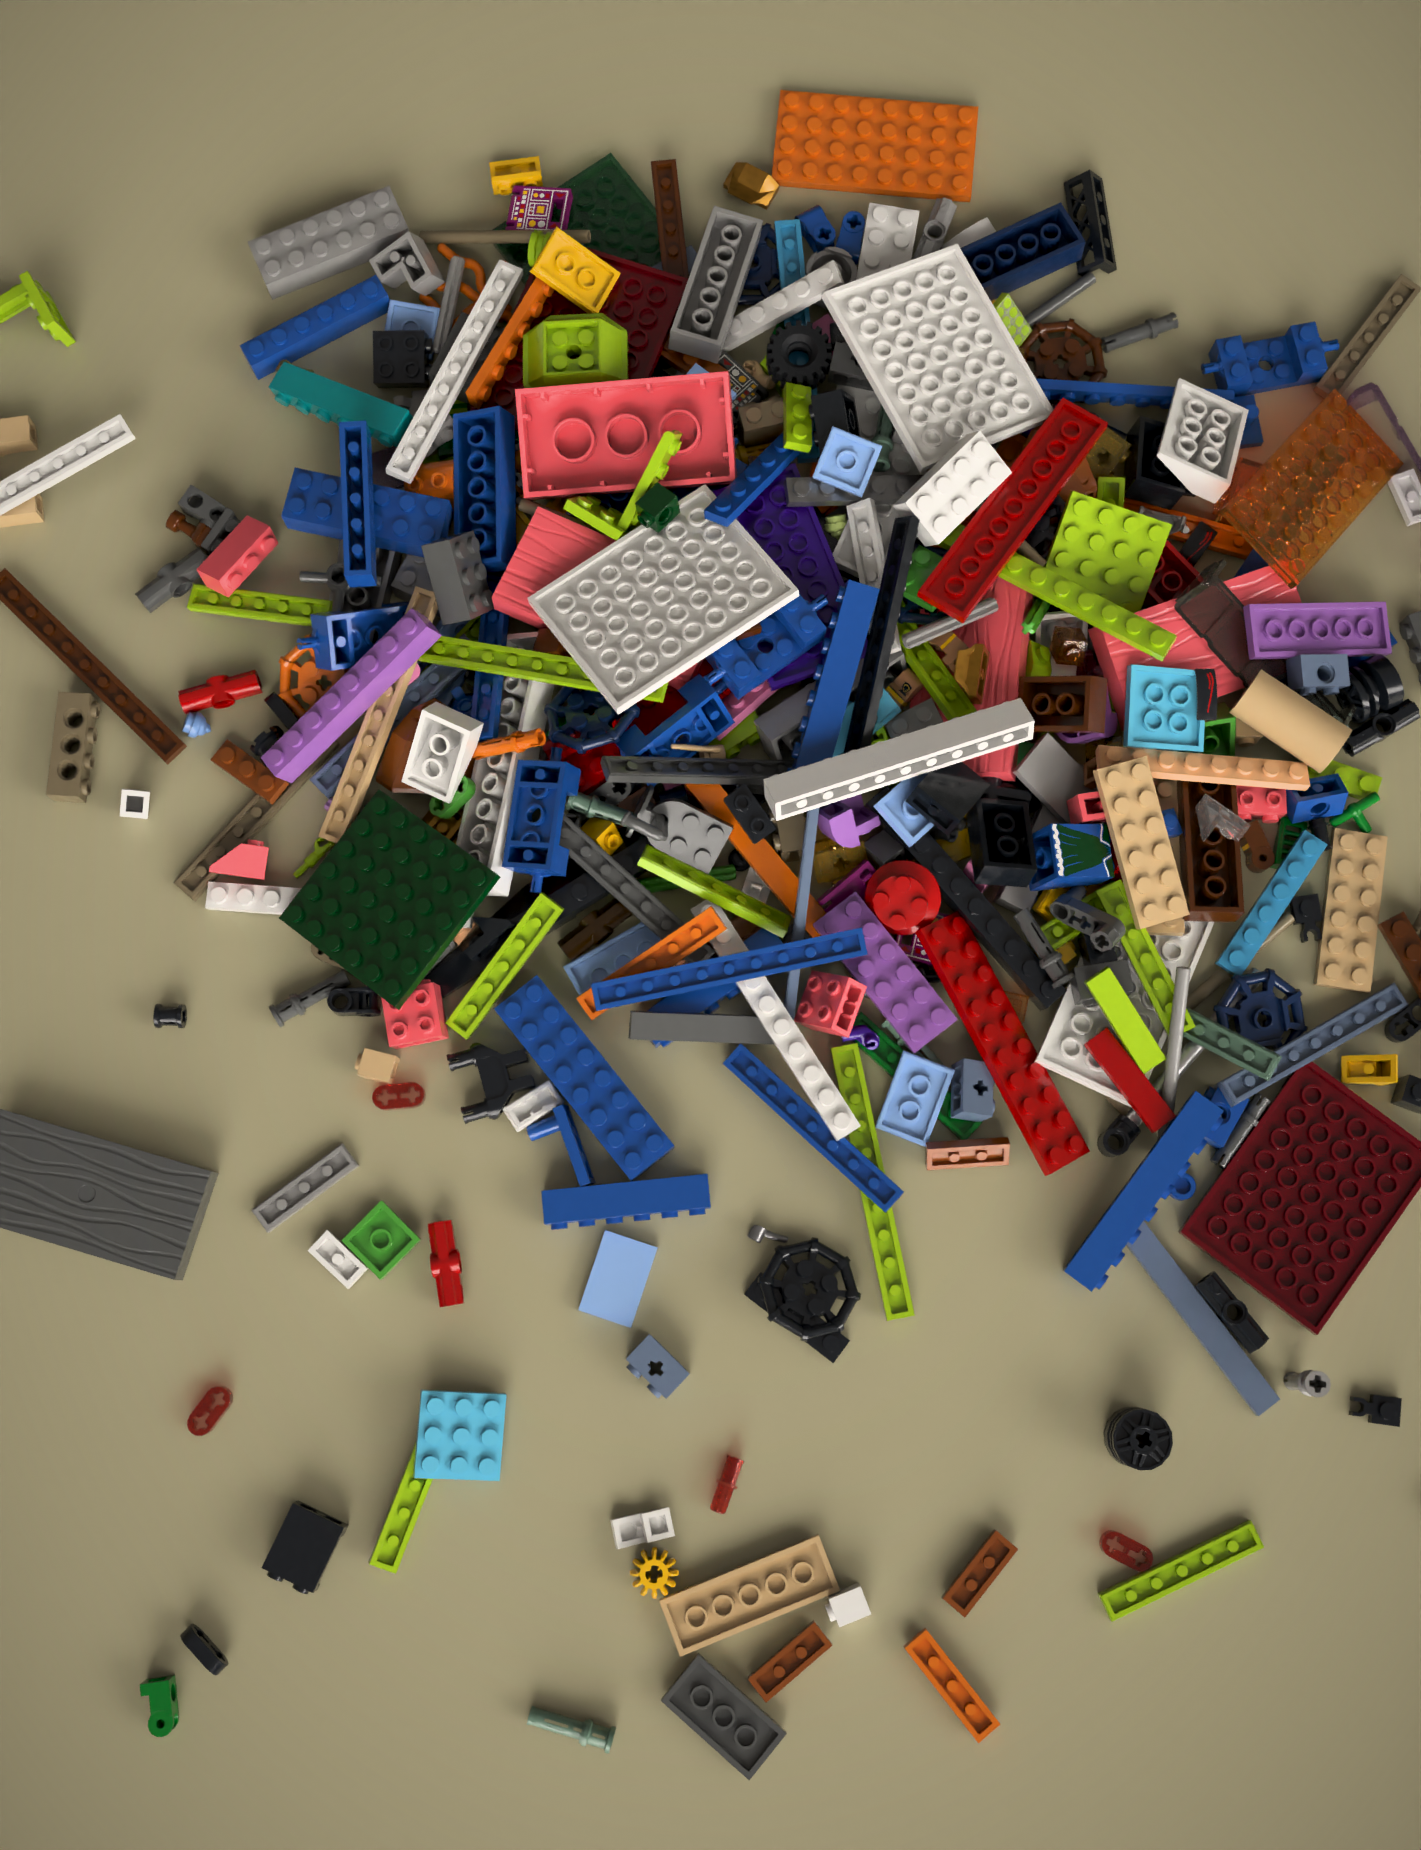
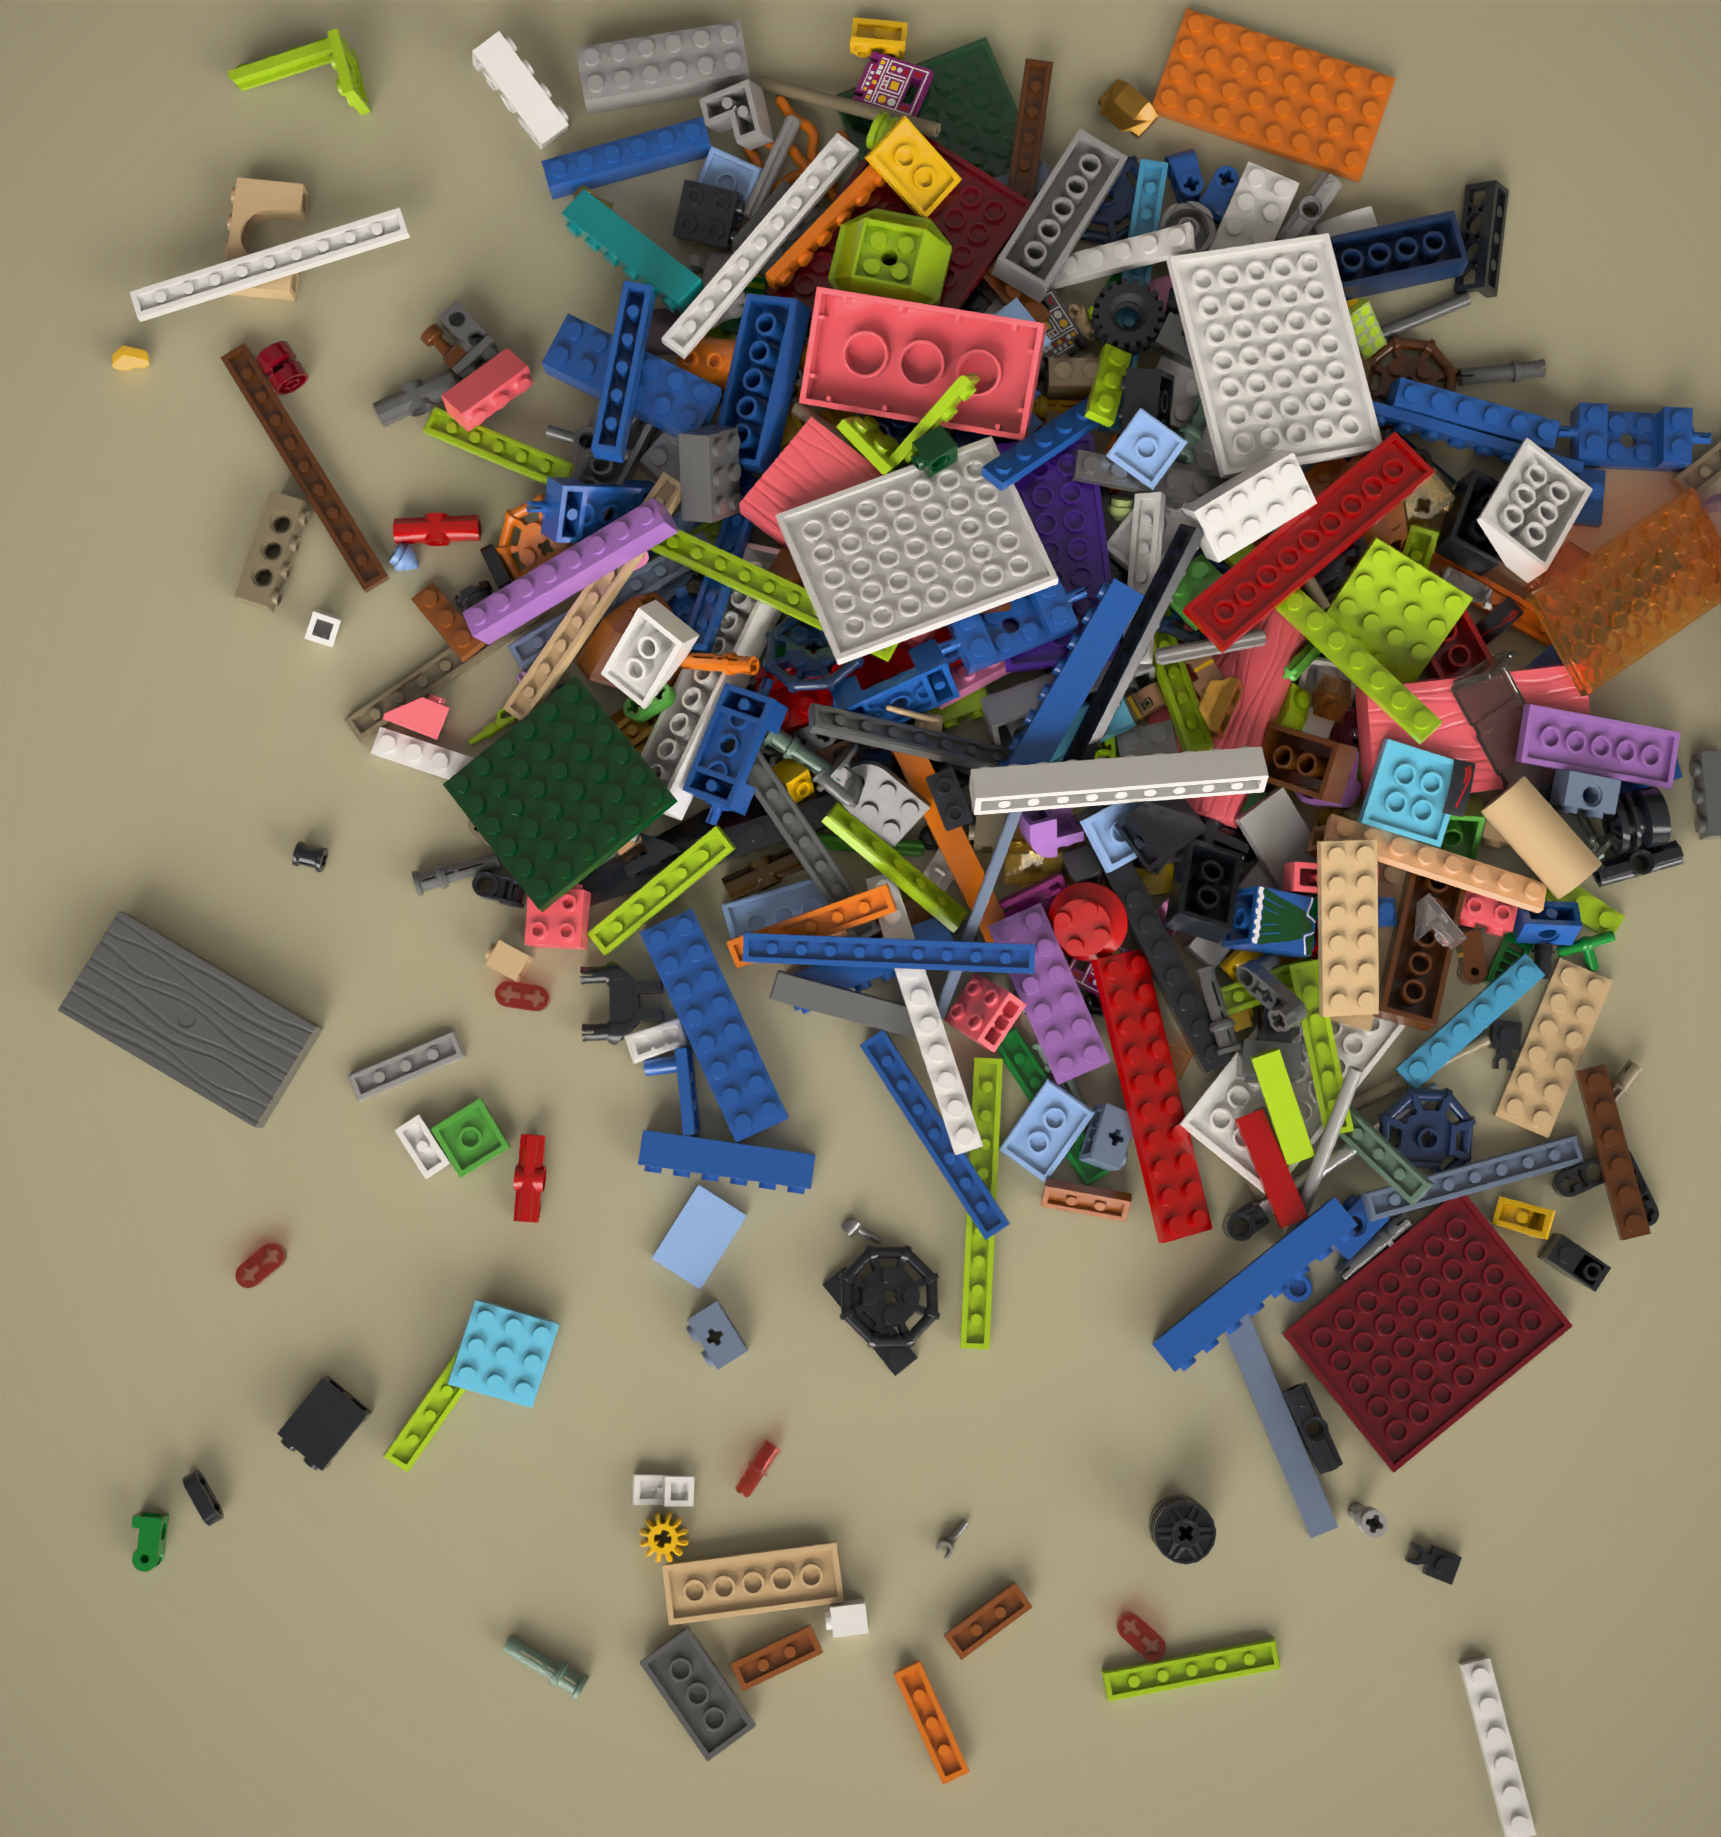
camera: 15 degrees right, 5 degrees up
(45, 581) = (281, 365): none -> dark red wheel
(205, 289) = (520, 89): none -> white wedge
(863, 1035) = (1012, 1054): dark purple arm -> none
(924, 1506) = (952, 1538): none -> flat silver hand
(1124, 369) = (1472, 413): none -> blue brick

